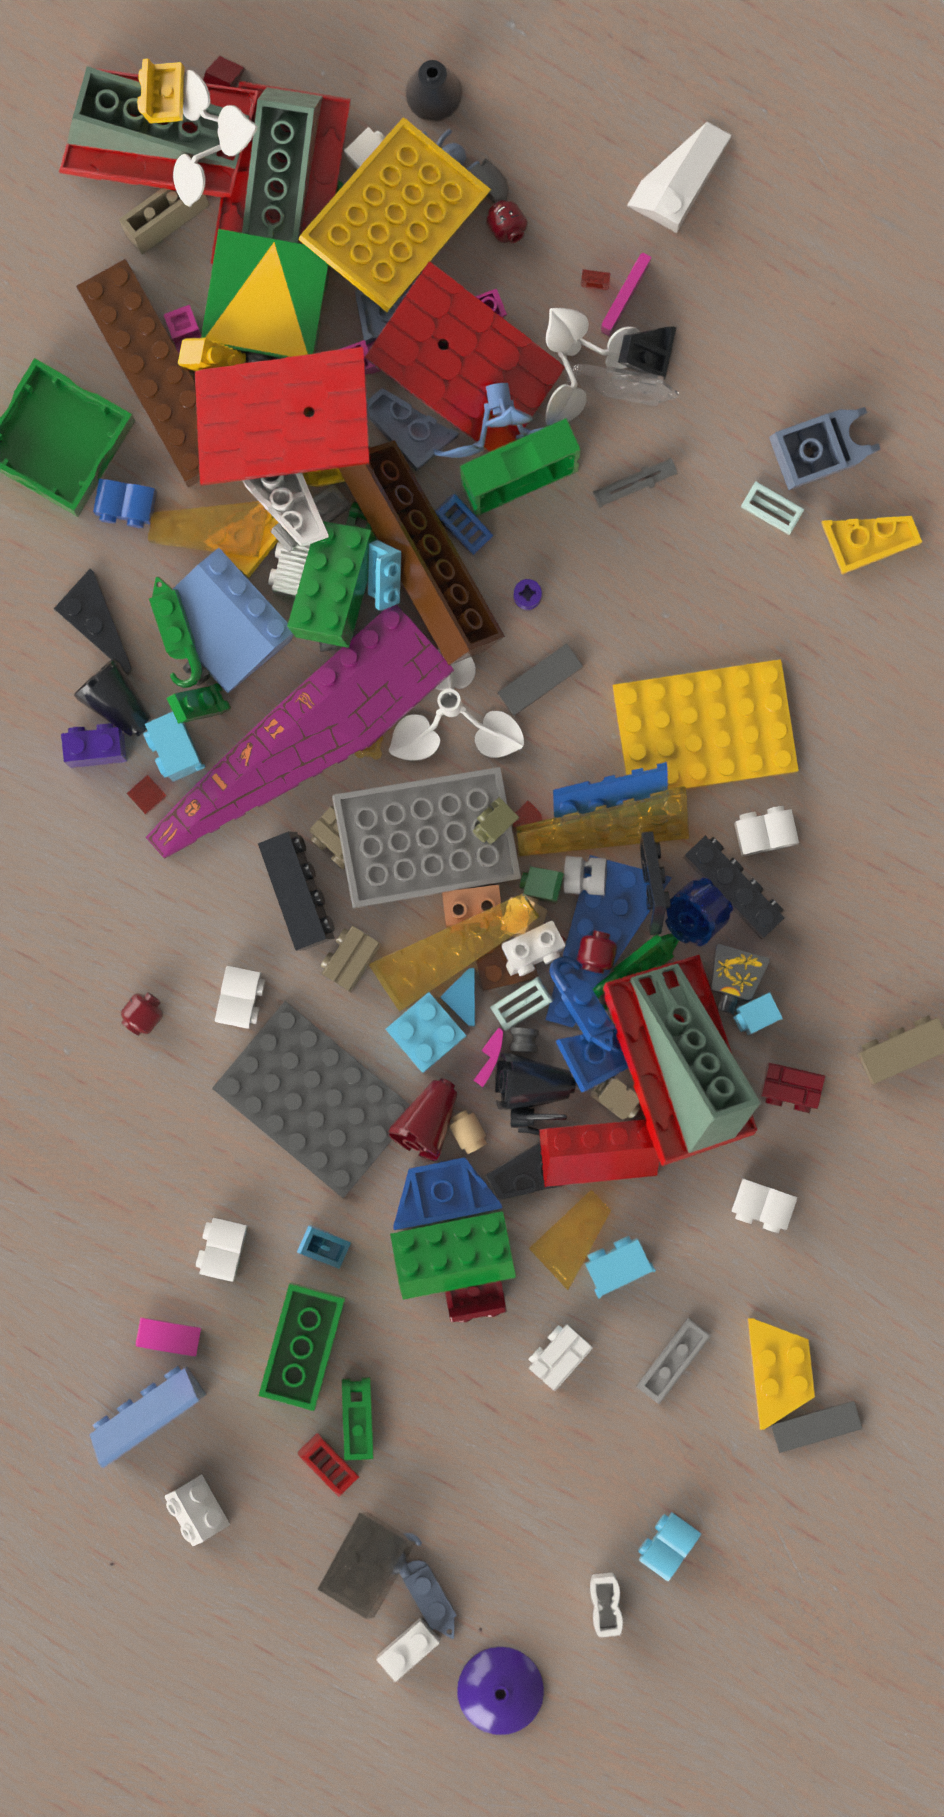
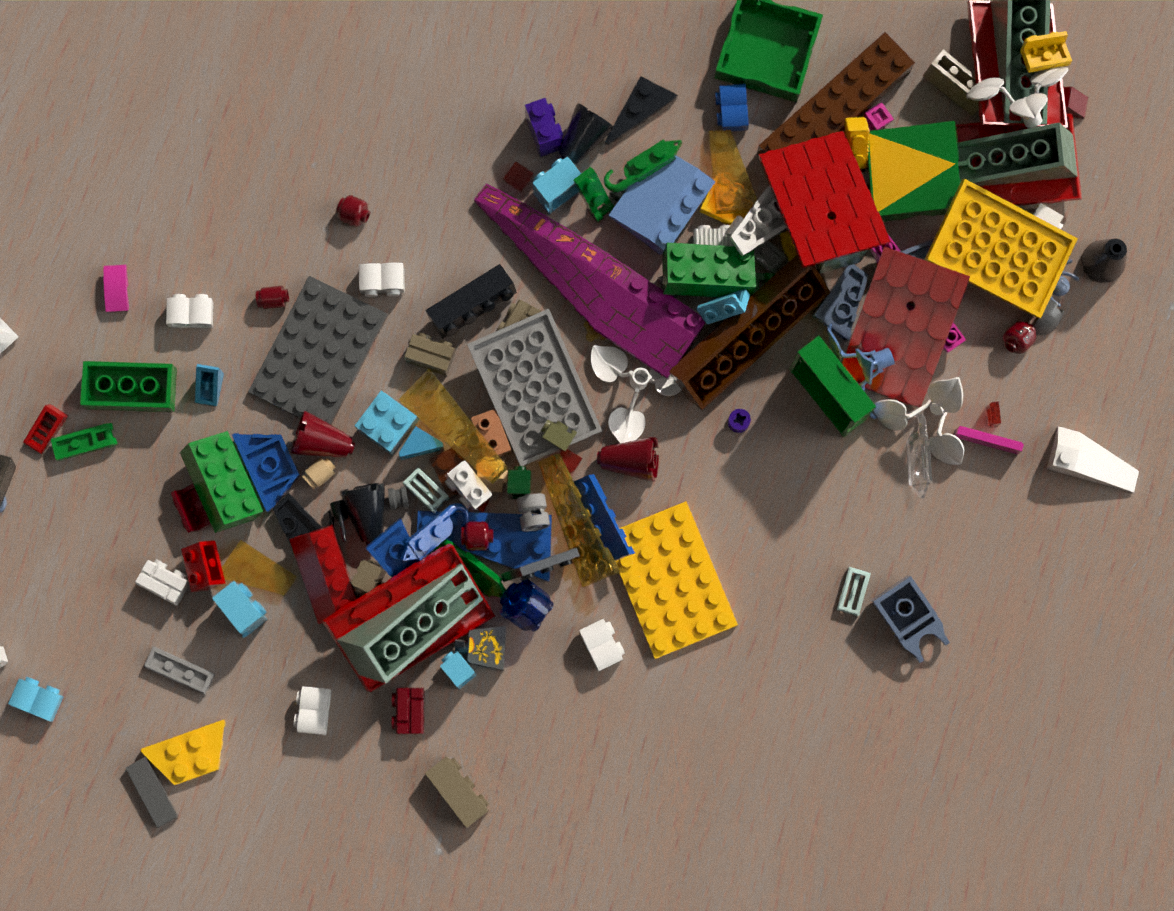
camera: 65 degrees right, 5 degrees down
(146, 1415) = (51, 283): medium blue slope -> none
(229, 1141) = (272, 297): none -> dark red brick
(470, 517) = (772, 377): blue slope -> none
(492, 1050) = (385, 476): dark pink slope -> none
(540, 679) = (677, 446): dark grey tile -> none
(544, 739) = (631, 458): none -> dark red cone
(553, 1301) = (203, 566): none -> red brick
(648, 350) = (949, 466): black wing -> none
(666, 469) = (862, 503): dark grey pin -> none
(744, 894) = (552, 629): black brick -> none
(869, 540) = (847, 671): yellow wing -> none

